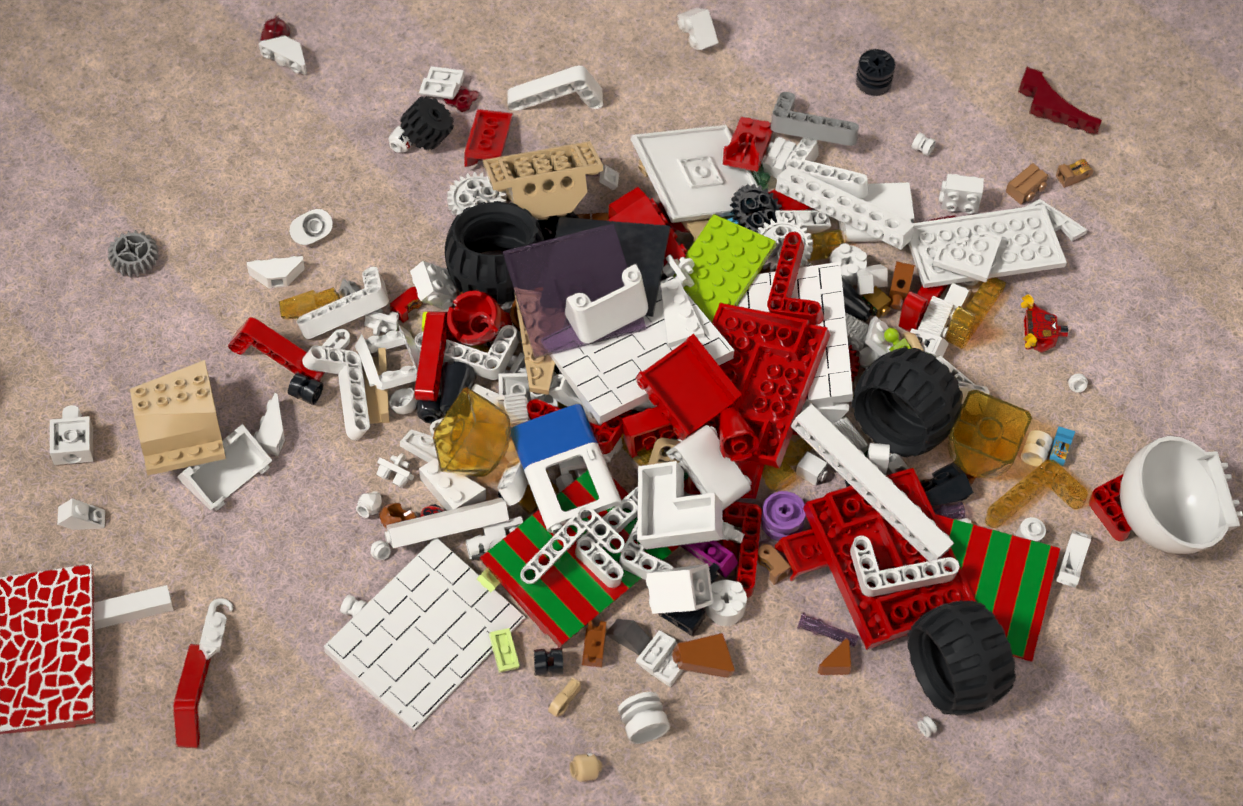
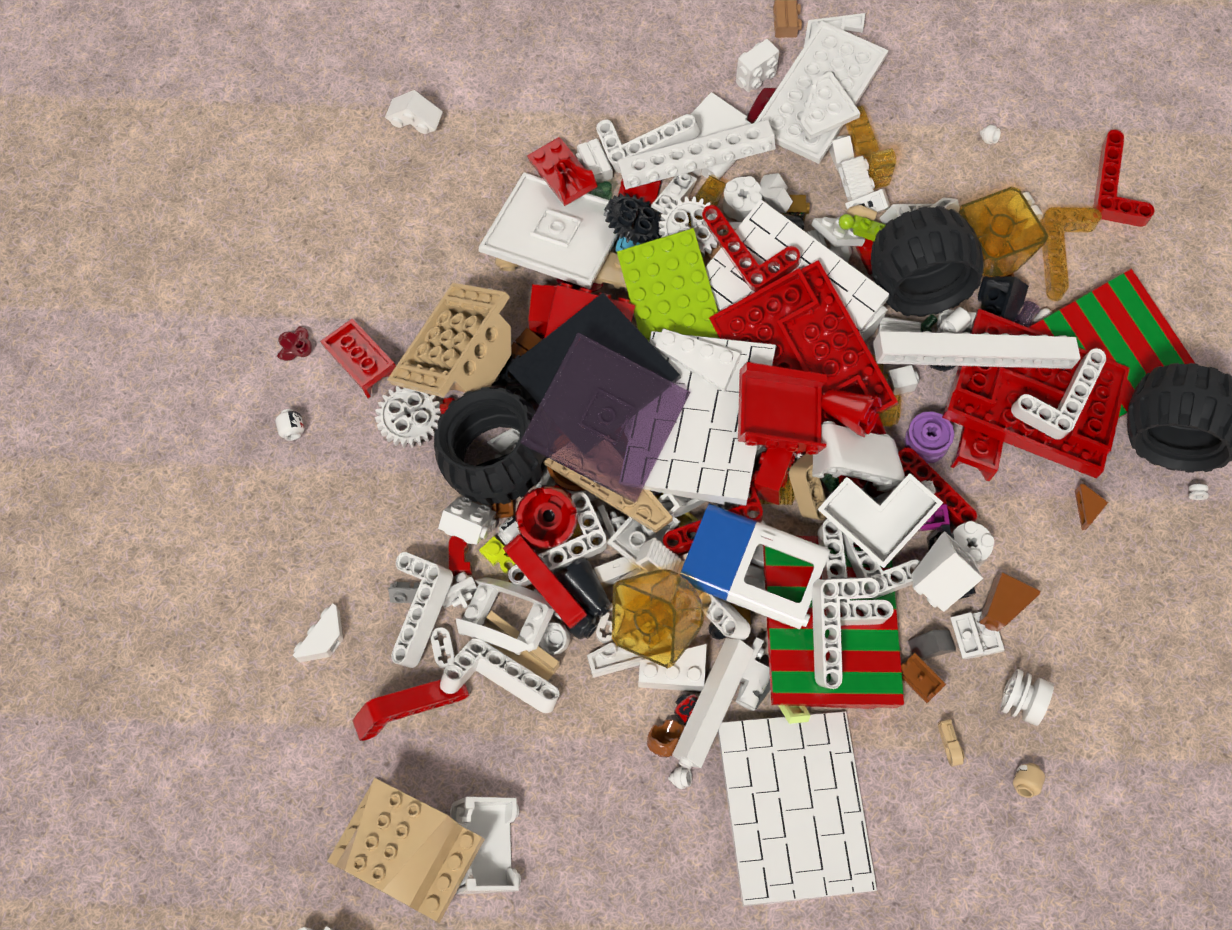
camera: 45 degrees left, 10 degrees up
(142, 257) = (181, 754): light grey gear -> none
(271, 429) = (483, 772): white slope -> none
(274, 28) = (74, 439): dark red piece -> none
(285, 53) = (103, 445): white slope -> none
(303, 388) = (463, 717): black wheel -> none
(306, 302) = (382, 637): clear yellow slope -> none
(311, 226) = (308, 571): white piece -> none
(351, 605) = (724, 843): white wheel -> none
(369, 504) = (630, 750): white rock -> none
(402, 475) = (606, 705): white hips -> none
(426, 123) = (300, 392): black wheel -> none
(442, 82) = (265, 346): white slope -> none
(504, 650) = (866, 755): yellowish green plate -> none
(541, 661) = (908, 728): black wheel -> none
(556, 85) = (364, 267): white beam -> none
(610, 312) = (652, 430): white windscreen -> none
(681, 269) = (639, 321): white hips -> none
(774, 562) = (964, 480): medium nougat leg -> none
(810, 126) = (592, 115): light grey beam -> none
(817, 627) = (1047, 495): clear purple pin -> none
(875, 72) = (585, 28): black wheel -> none
(900, 284) = (797, 176): dark orange torso -> none
(916, 306) = (831, 185): red beam -> none
(923, 144) = (681, 53): white wheel -> none
(1031, 529) = (1093, 276): white piece -> none
(1040, 327) = (922, 117): torso -> none
(1061, 445) = (1041, 196): dark azure leg -> none
(1074, 558) = (1135, 256): white arch -> none
(1178, 496) = (1168, 156): white windscreen -> none

